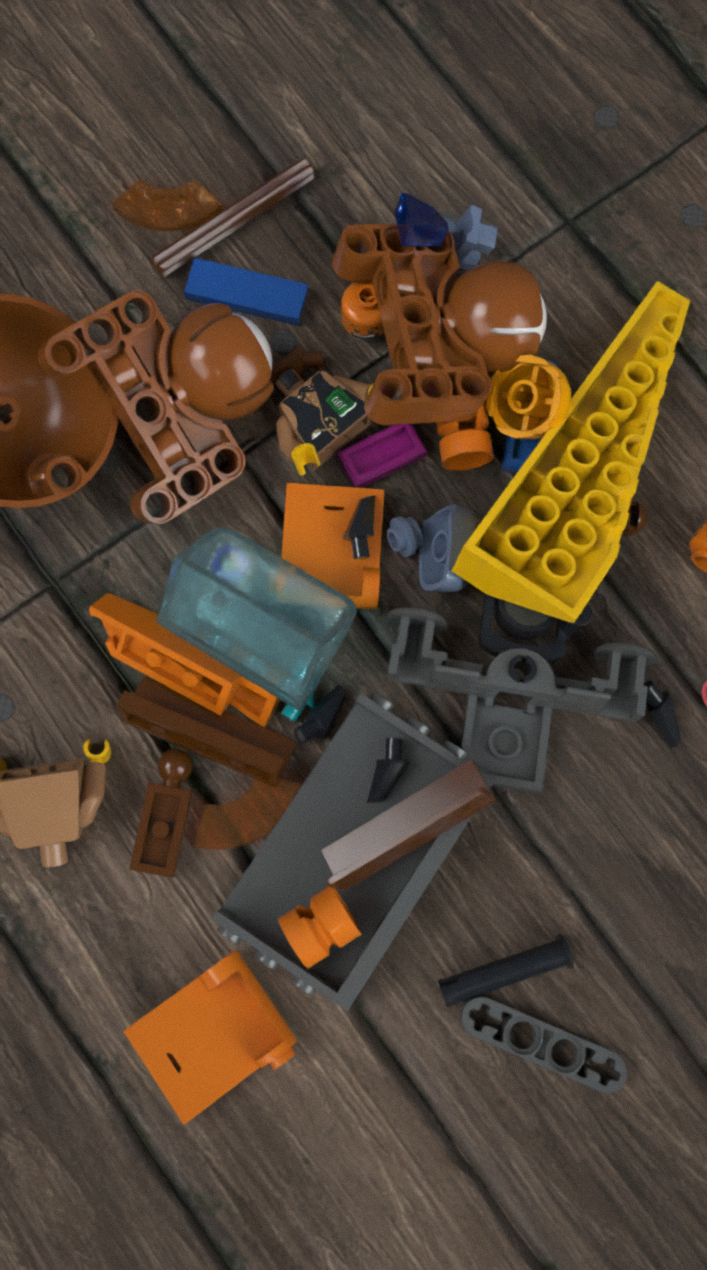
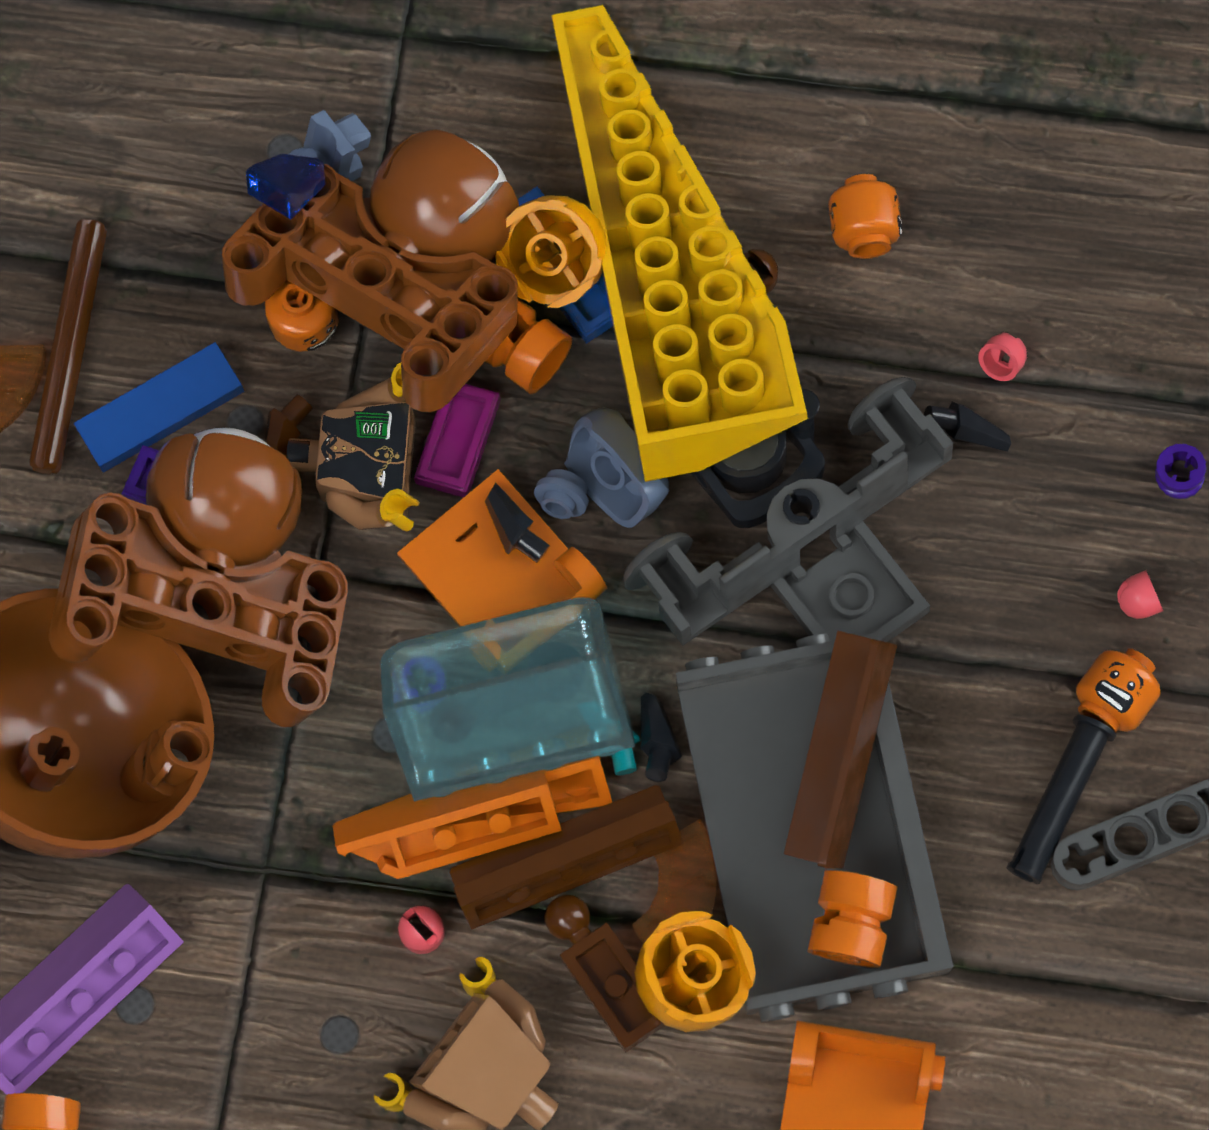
camera: 30 degrees left, 5 degrees down
(105, 694) = (412, 938): none -> coral hinge
(221, 873) = (694, 972): none -> light orange cylinder
(387, 771) = (771, 722): black bar -> none
(600, 944) = (1118, 689): none -> orange head
(664, 902) = (1138, 597): none -> coral hinge

